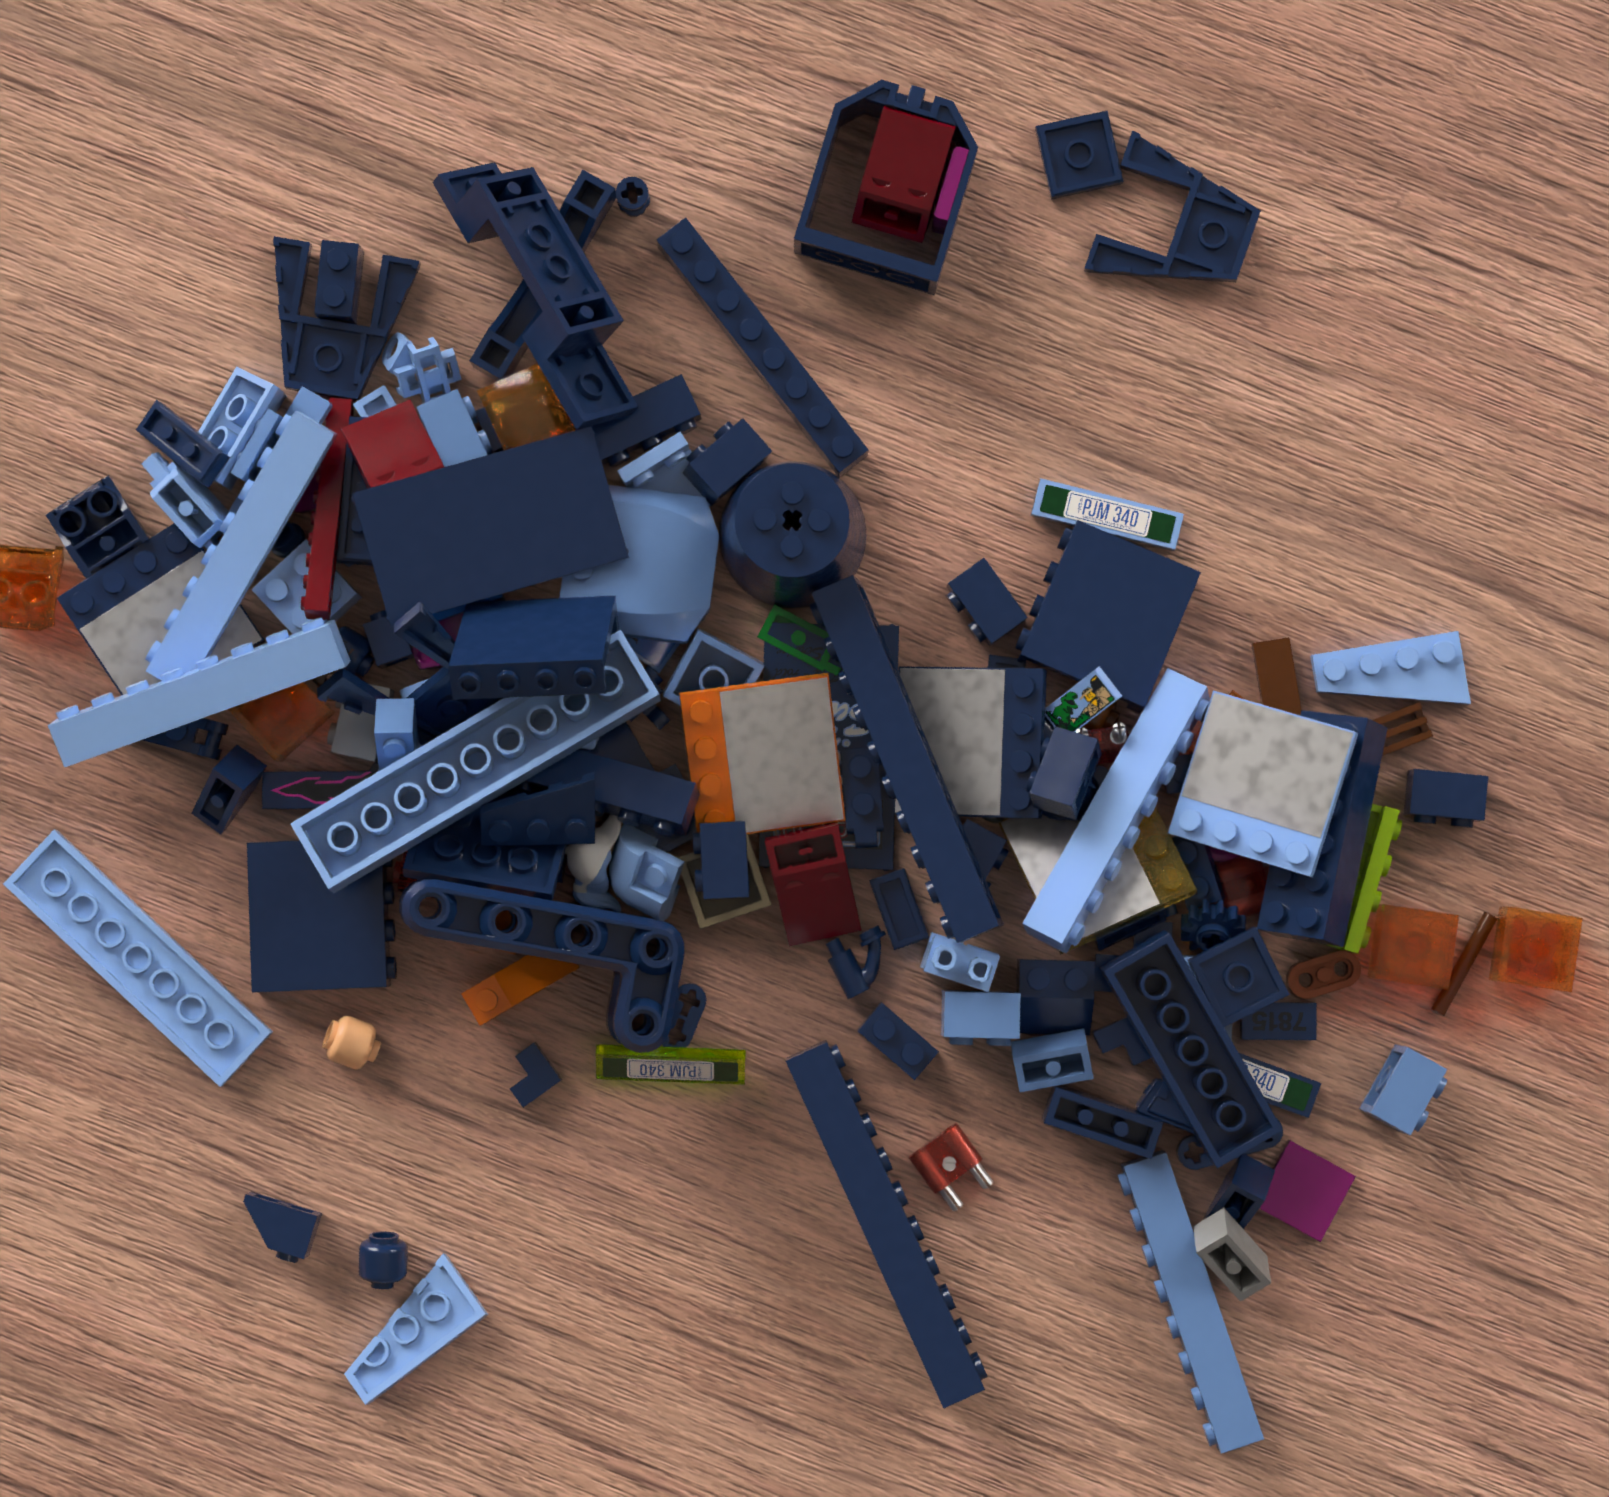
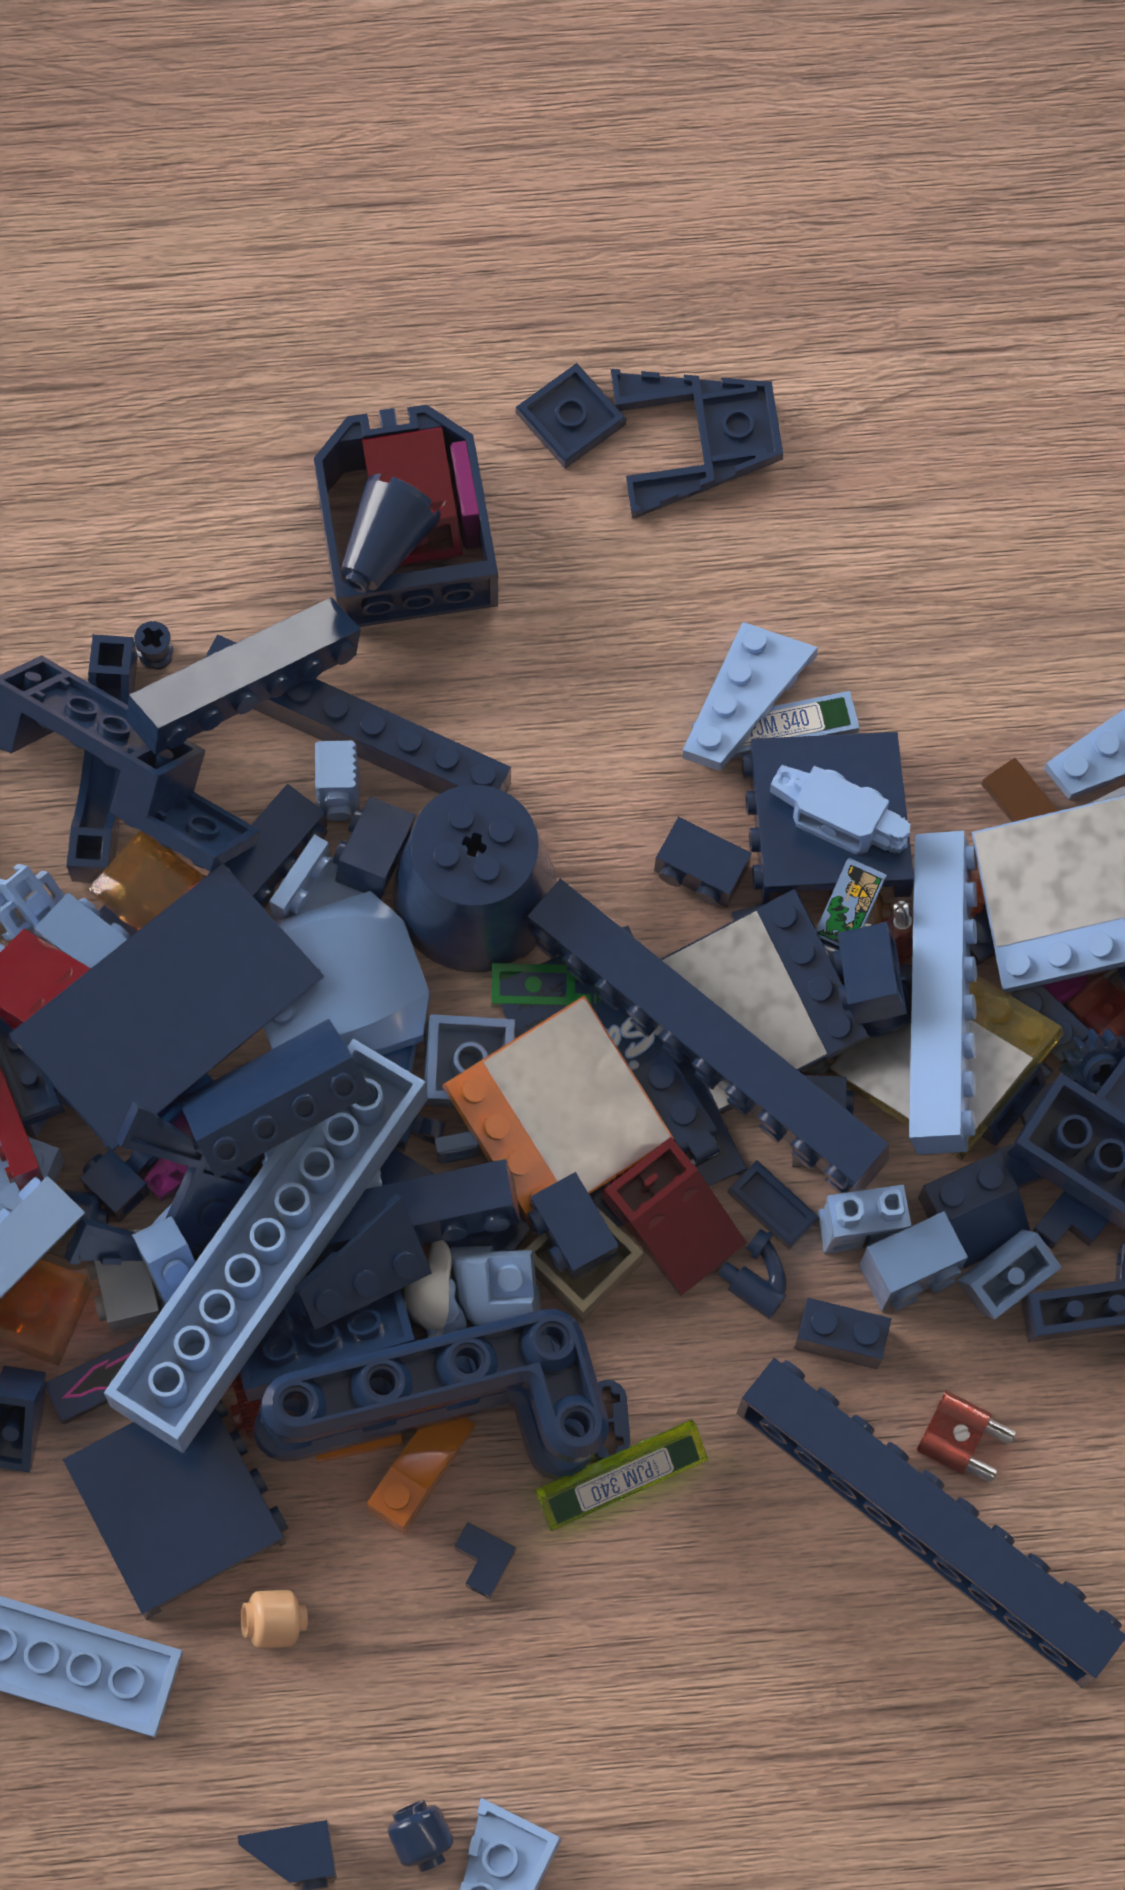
camera: 30 degrees left, 15 degrees down
(669, 741) = (456, 1147): none -> medium blue tile
(684, 272) = (243, 675): none -> brick
(722, 391) = (337, 778): none -> light blue brick
(857, 205) = (385, 531): none -> dark blue cone
(1107, 465) = (744, 692): none -> light blue wing
(1113, 622) = (840, 810): none -> light blue hinge

